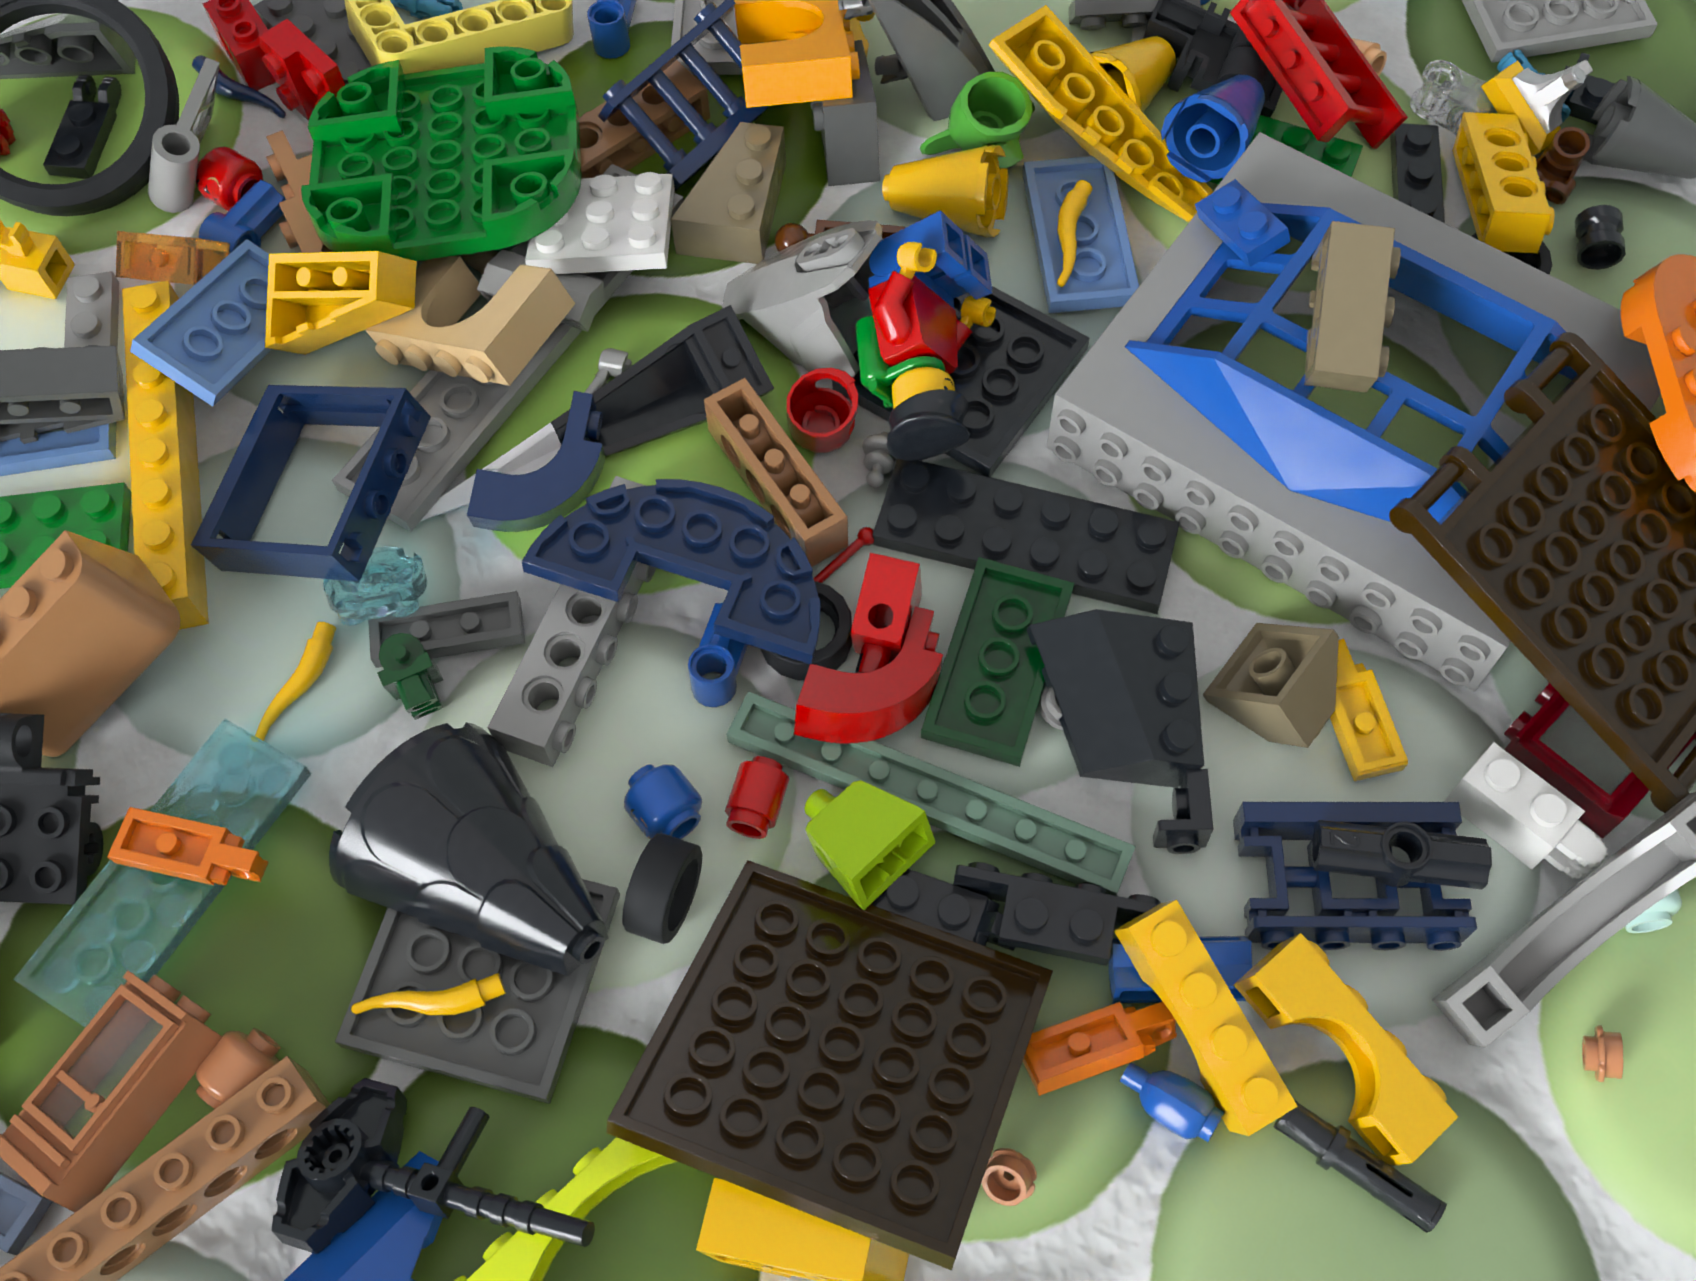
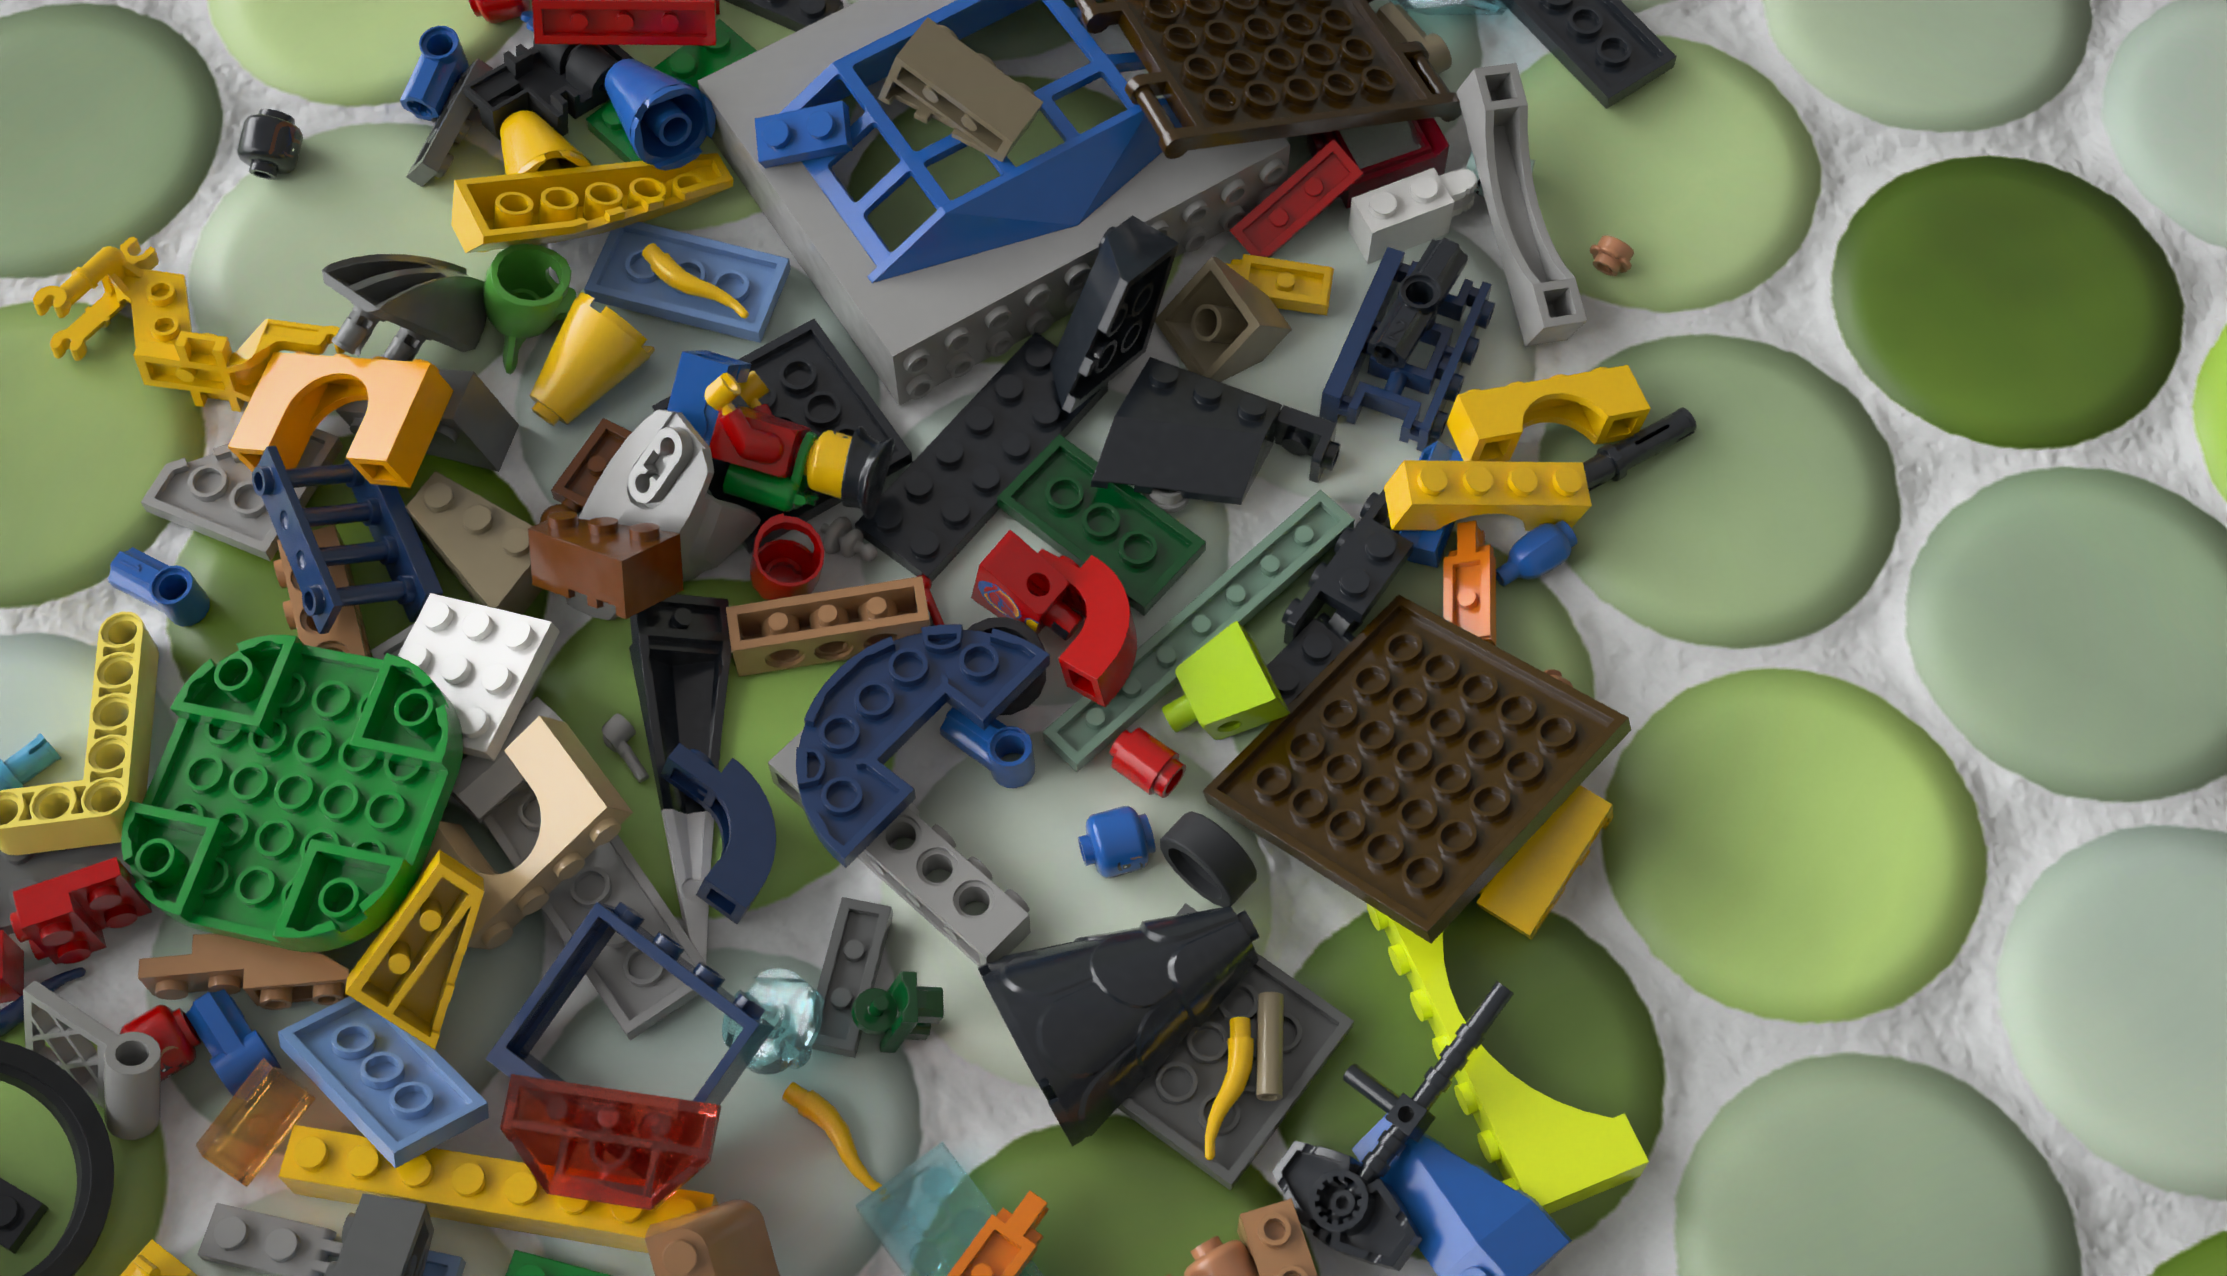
camera: 70 degrees left, 0 degrees up
(195, 482) = (607, 1140): none -> clear red wedge
(483, 1023) = (1270, 1046): none -> dark tan piece
(736, 270) = (606, 561): none -> reddish brown wedge
(1219, 566) = (1113, 311): none -> black wedge
(1462, 694) = (1297, 201): none -> red plate

